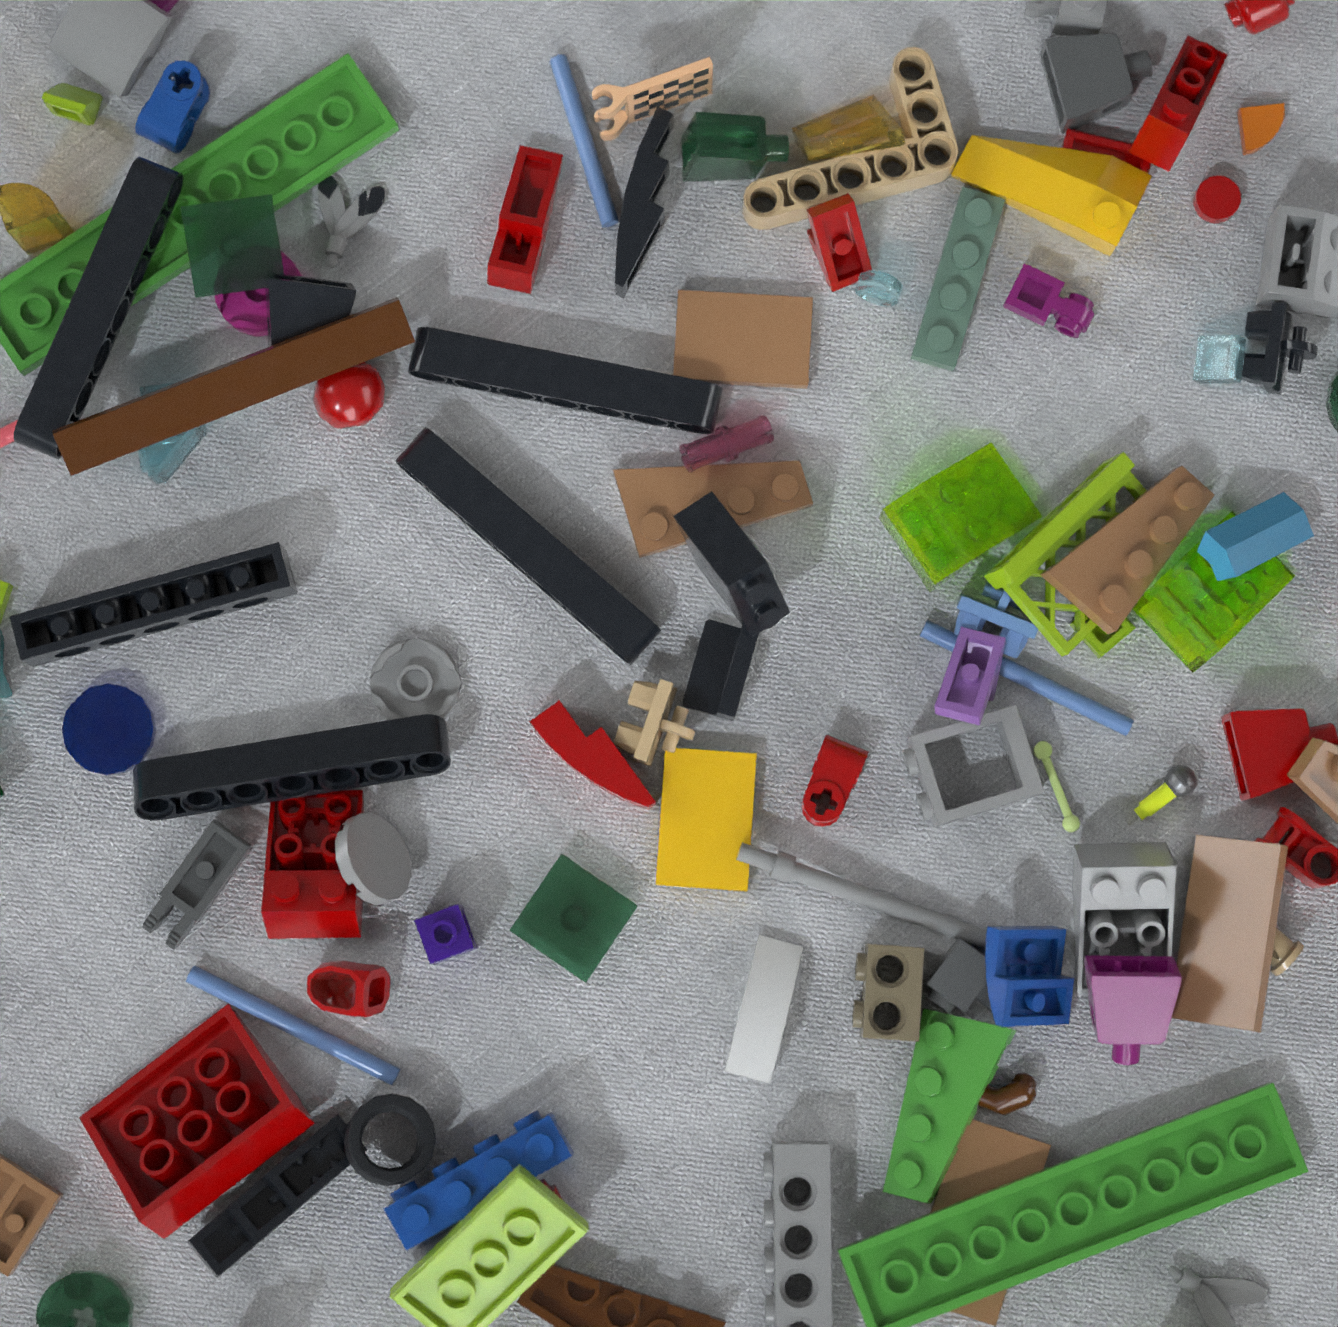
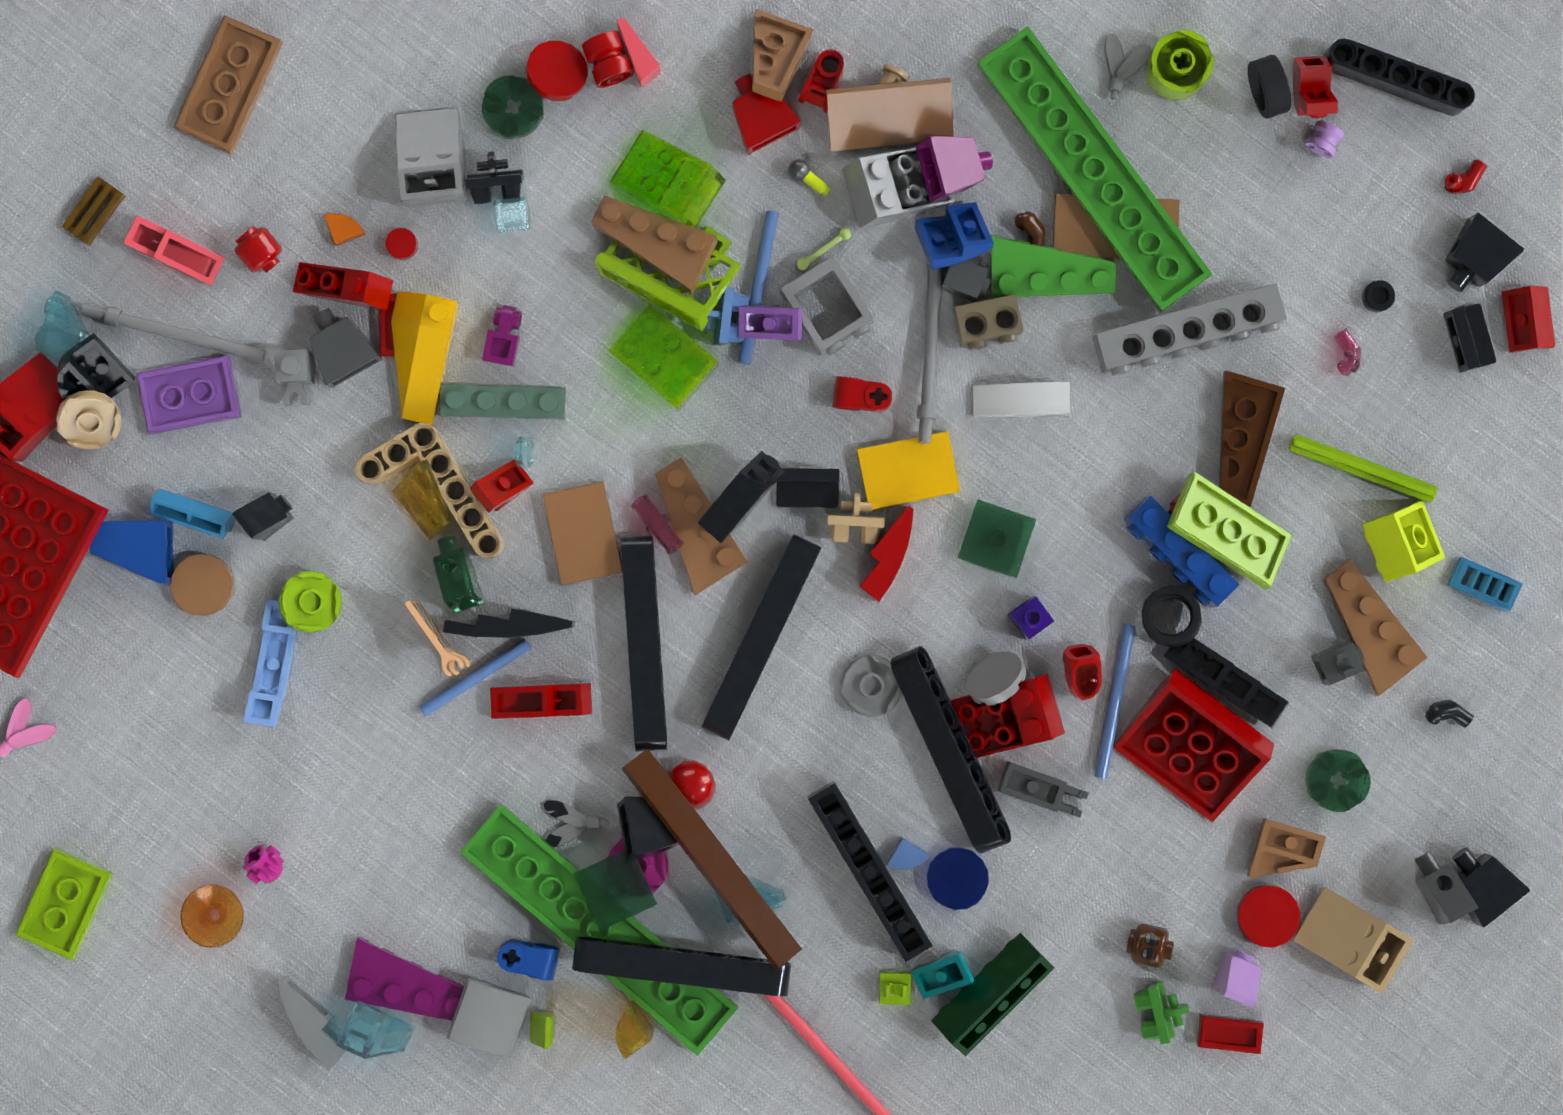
camera: 110 degrees left, 5 degrees up
(160, 667) = (907, 856): none -> medium blue tile
(1254, 536) = (627, 160): dark azure piece -> none

